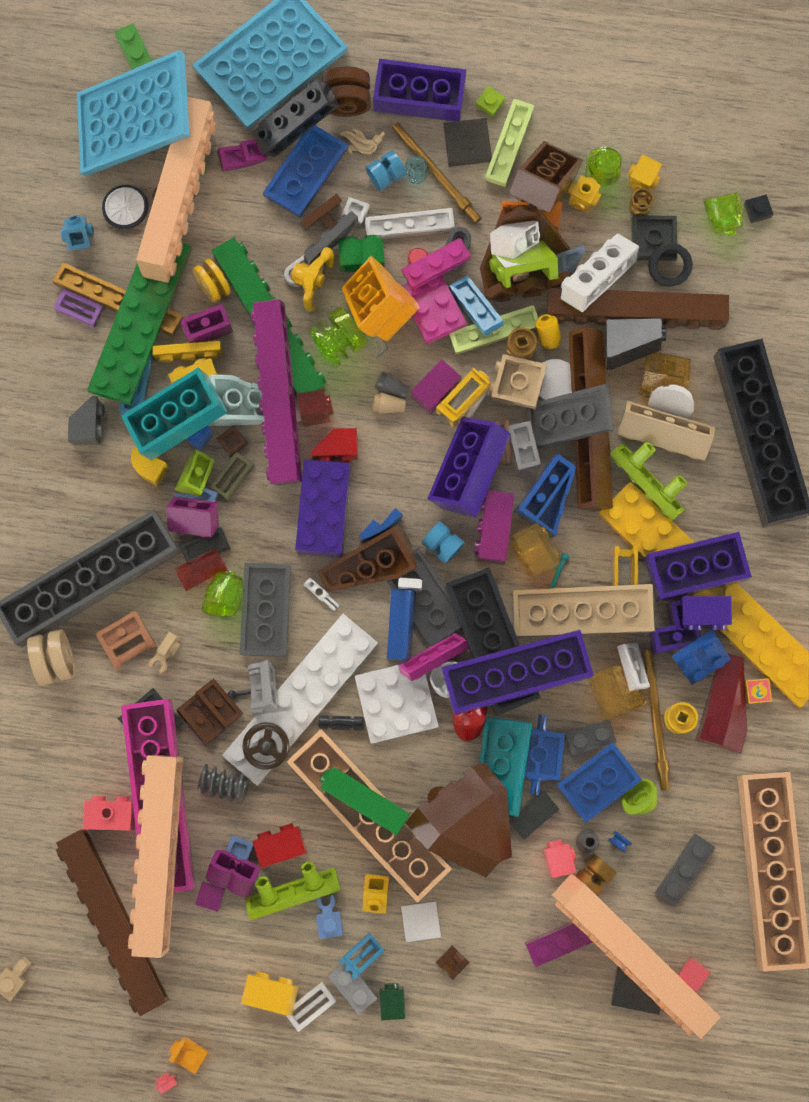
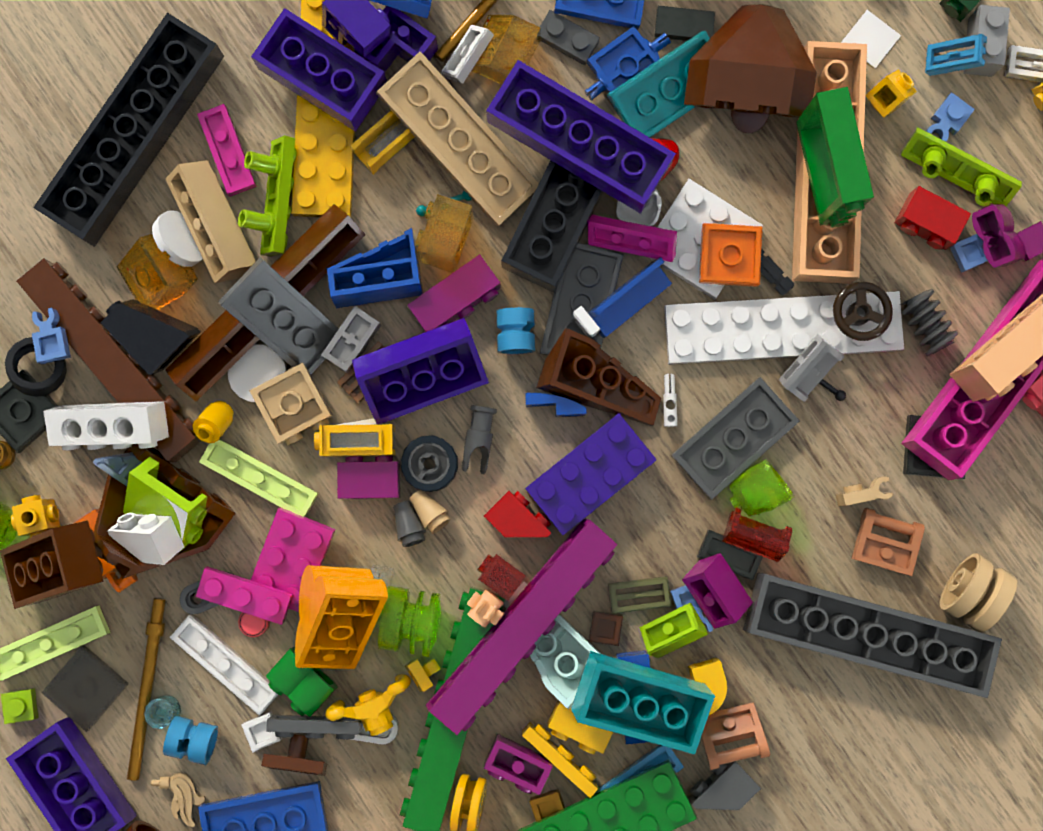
camera: 140 degrees left, 5 degrees up
(115, 456) = (730, 726): none -> nougat plate
(209, 712) = (876, 399): reddish brown slope -> none
(304, 320) = (421, 674): none -> yellow tile
(304, 379) = (485, 608): none -> light nougat gear
(370, 705) = (730, 254): none -> orange tile
(404, 470) = (479, 436): none -> dark grey piece
(414, 416) = (429, 479): none -> wheel
(476, 305) = (251, 516): dark azure plate -> none
(521, 343) = (251, 435): pearl gold wheel -> none
(674, 281) = (50, 342): none -> medium blue plate
(703, 478) = (226, 150): none -> dark pink plate

